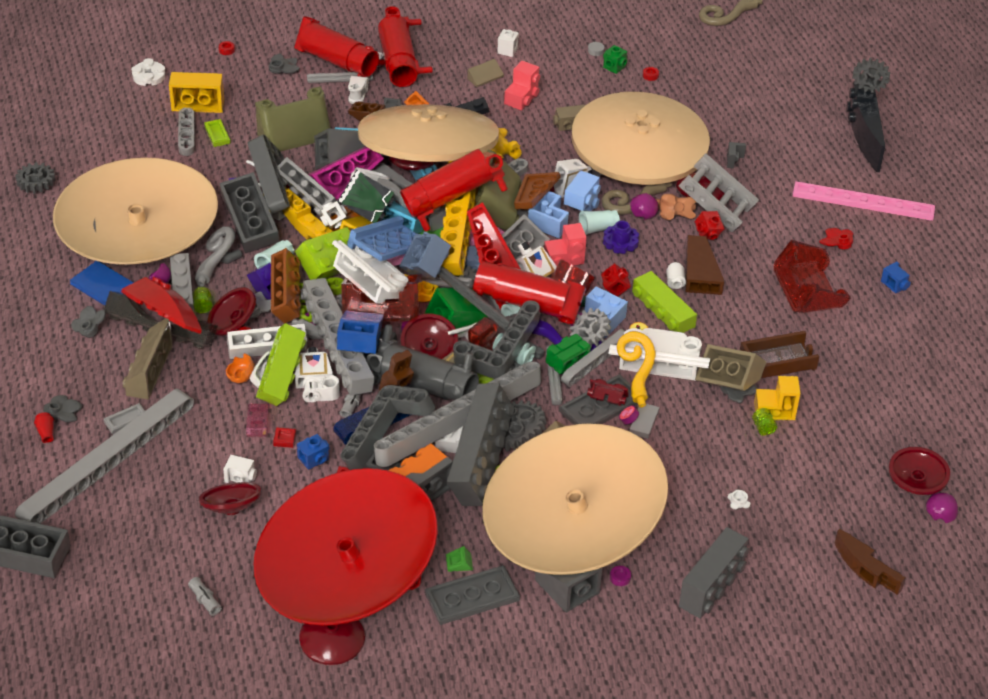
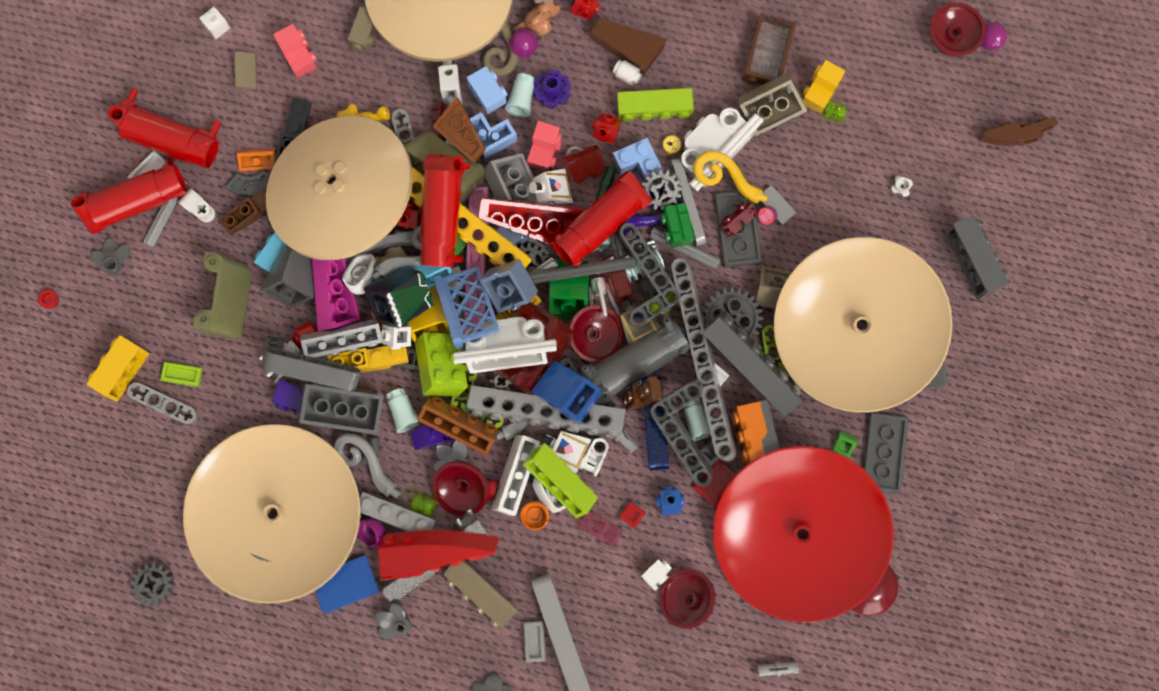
camera: 60 degrees left, 35 degrees up
(148, 72) = (33, 393): white plate -> none

